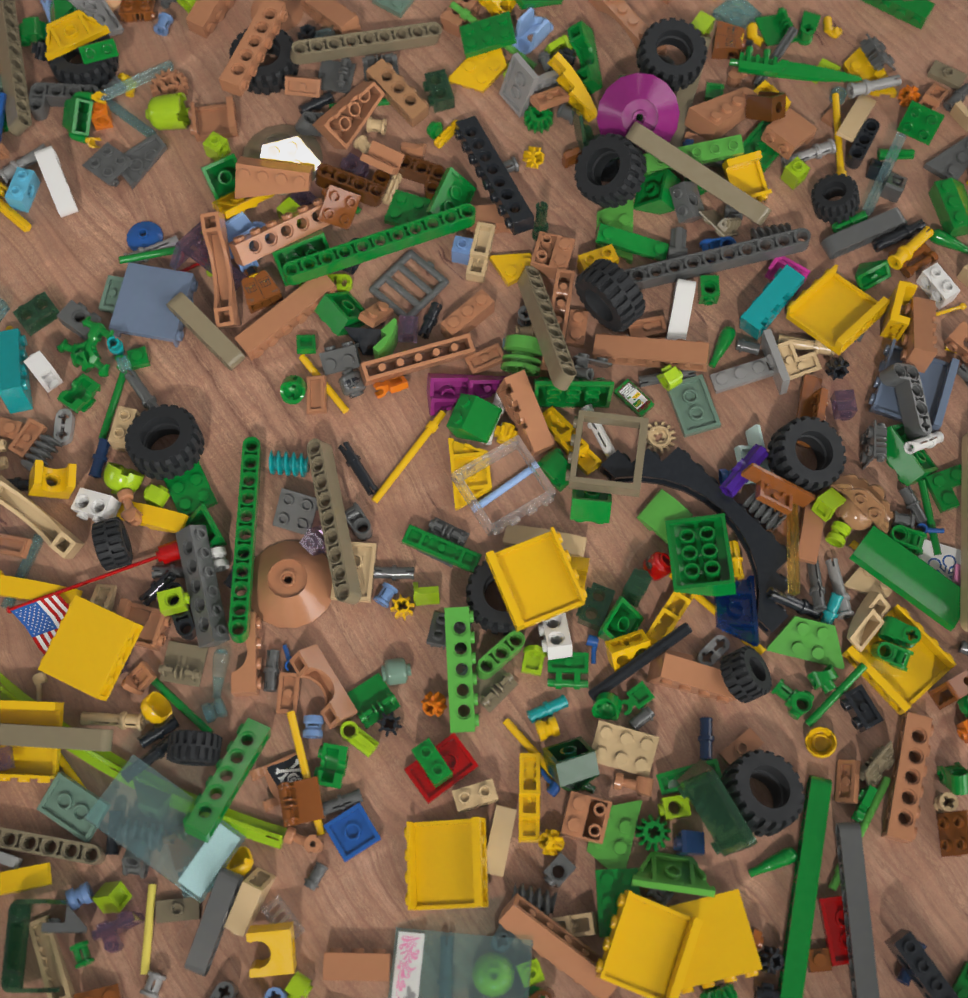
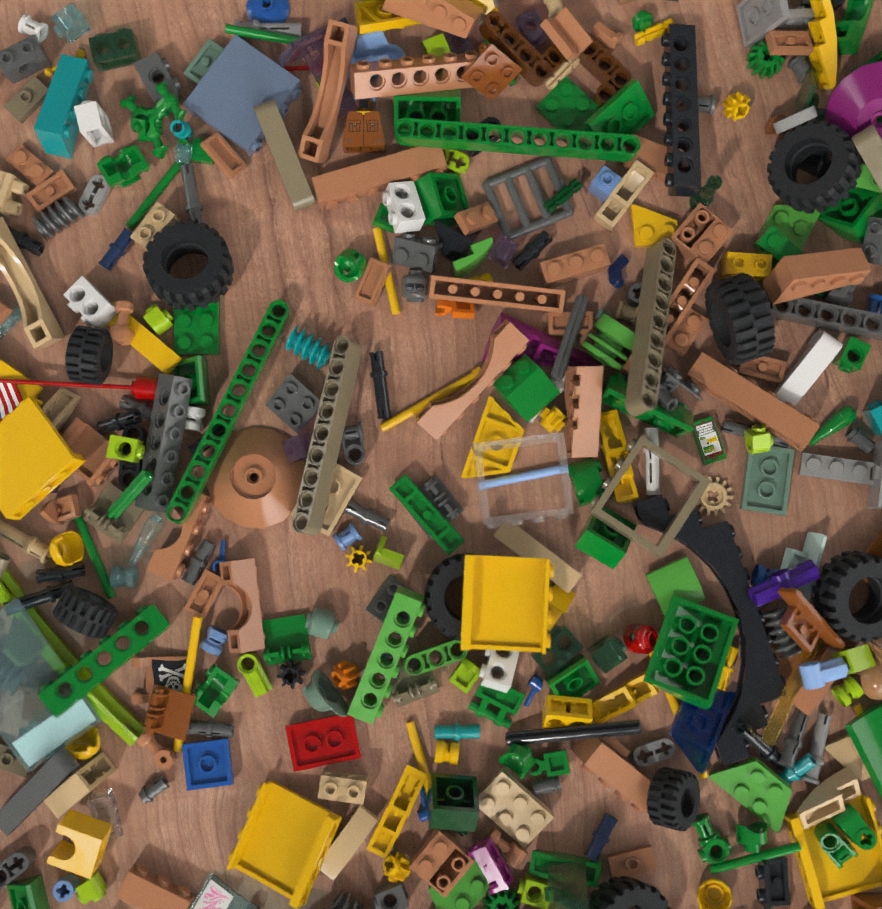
camera: 20 degrees right, 15 degrees up
(63, 478) = (69, 256): yellow piece -> none
(120, 478) = (129, 284): lime cylinder -> none
(156, 352) = (223, 155): none -> nougat tile
(191, 637) = (130, 494): none -> green axle
(316, 328) = (403, 201): none -> white brick
(420, 729) = (324, 696): none -> sand green piece
(432, 763) = (314, 738): green brick -> none
(434, 271) = (562, 195): none -> dark green axle
(441, 393) = (440, 414): none -> nougat arch
(489, 366) = (569, 336): none -> dark grey axle
(501, 308) = (615, 272): none -> clear blue arm
(577, 148) = (795, 119): none -> light grey beam
(627, 800) = (492, 865): none -> magenta hinge
(649, 241) = (815, 273): none -> nougat wedge
(806, 524) = (817, 673): none -> light blue piece

